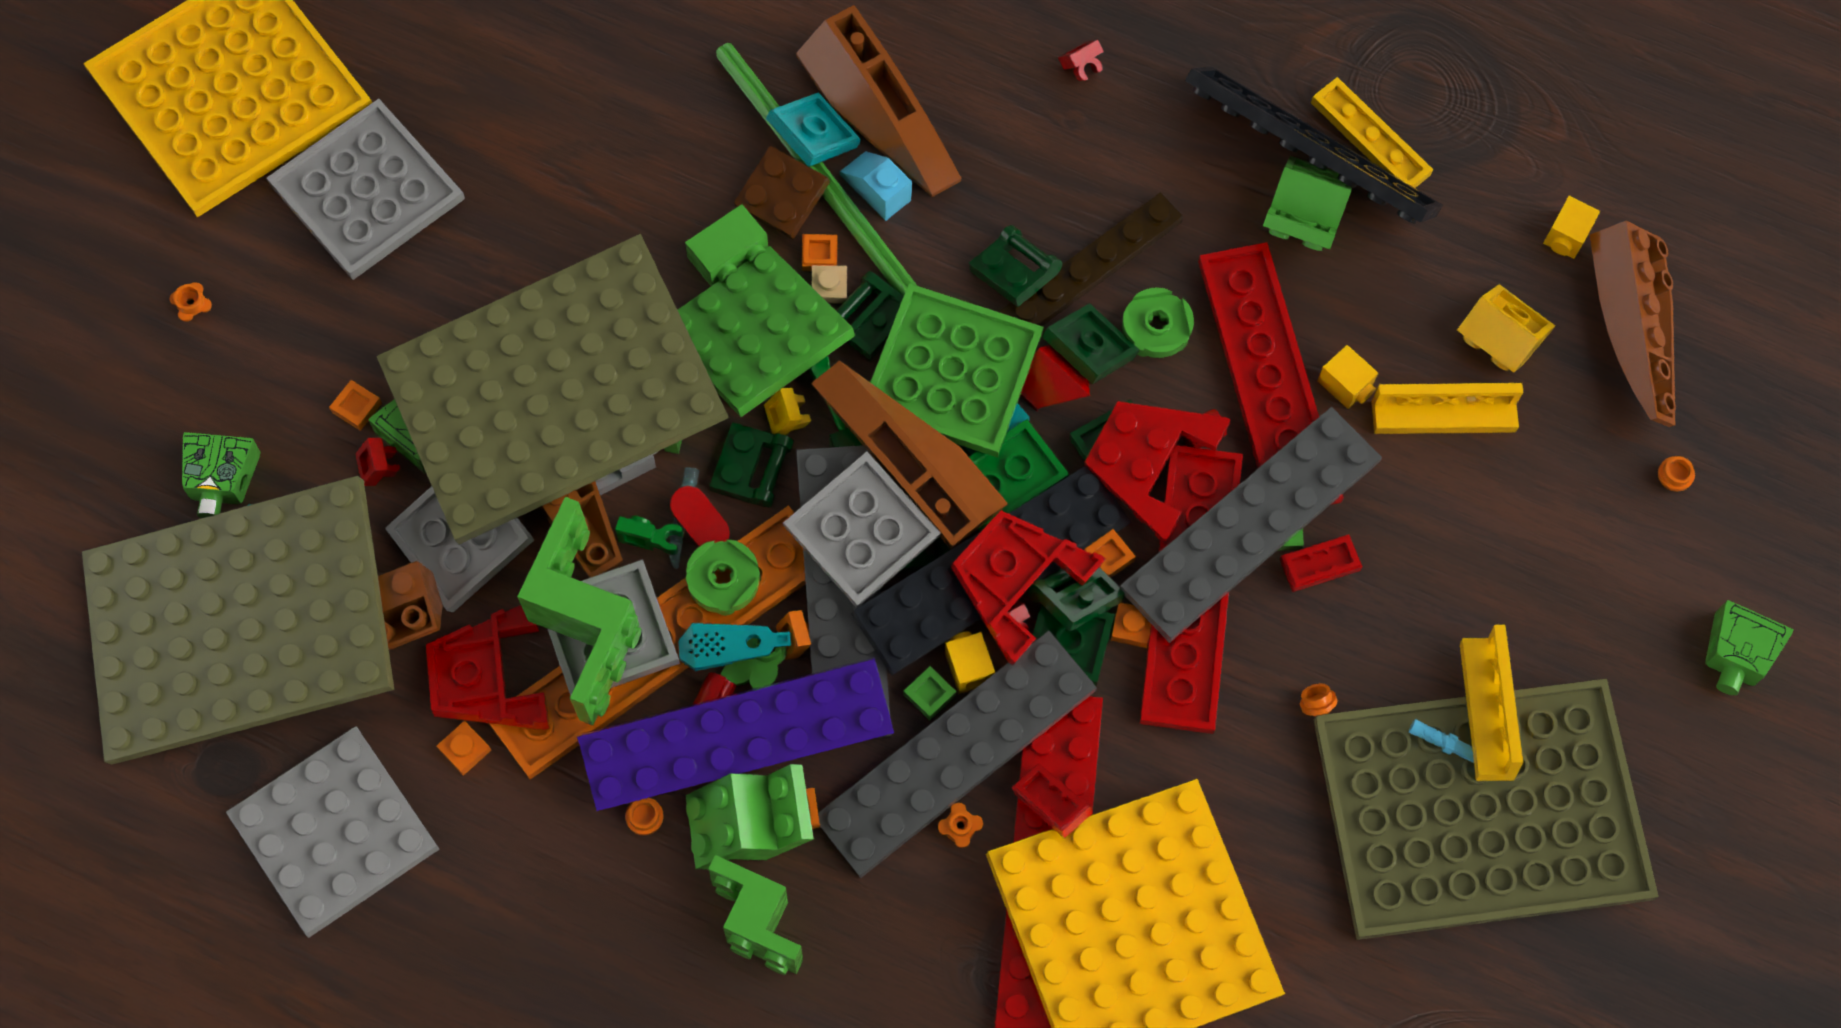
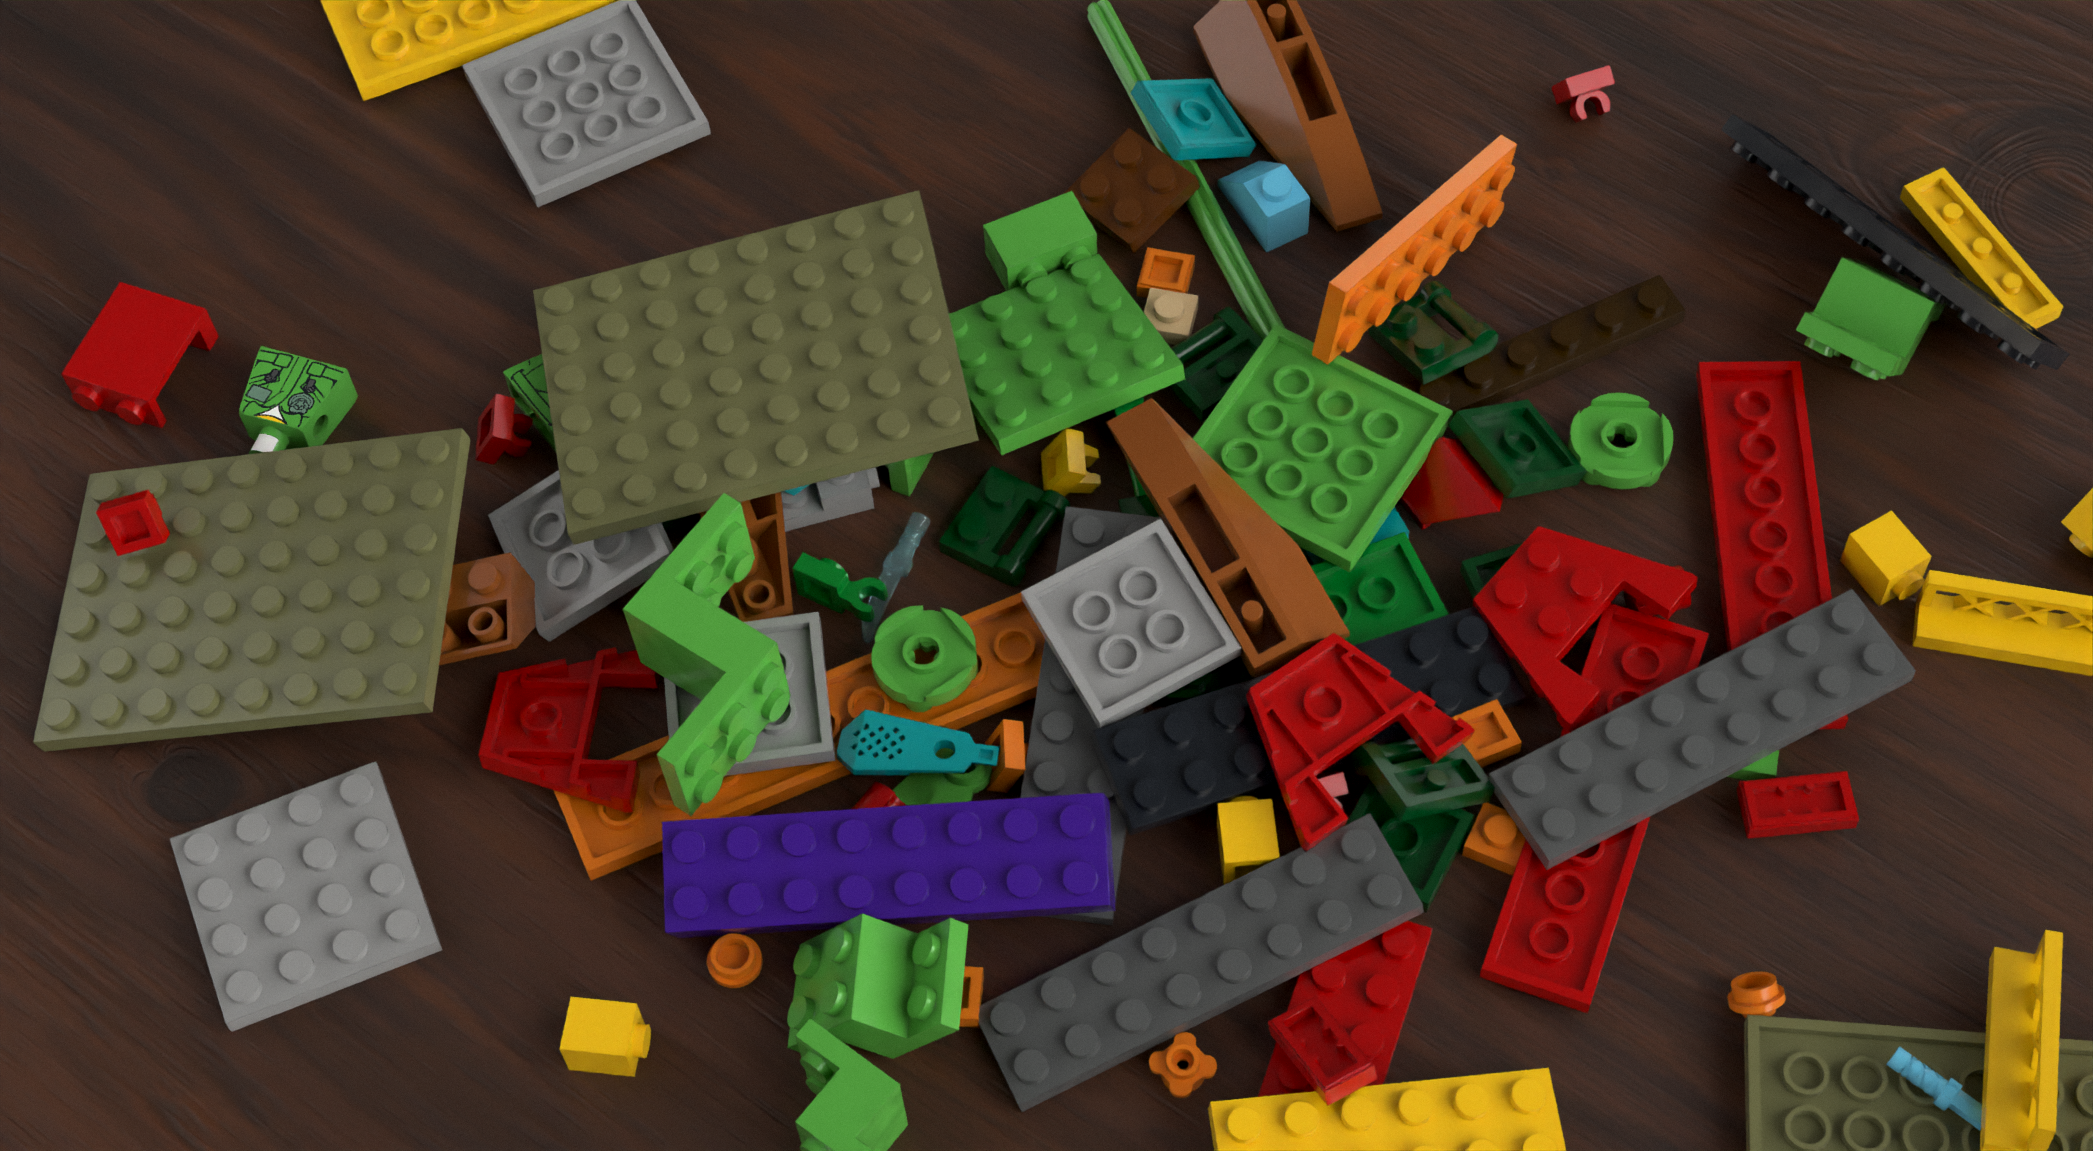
camera: 20 degrees right, 10 degrees down
(88, 452) = (135, 352): none -> red panel
(134, 589) = (133, 522): none -> red tile
(190, 292) = (323, 196): orange plate -> none
(355, 405) = (492, 355): orange plate -> none
(463, 748) = (512, 820): orange plate -> none
(571, 888) = (604, 1036): none -> yellow brick
(698, 516) = (912, 572): red tile -> none
(929, 693) = (1180, 872): bright green plate -> none
(995, 210) = (1414, 250): none -> orange plate

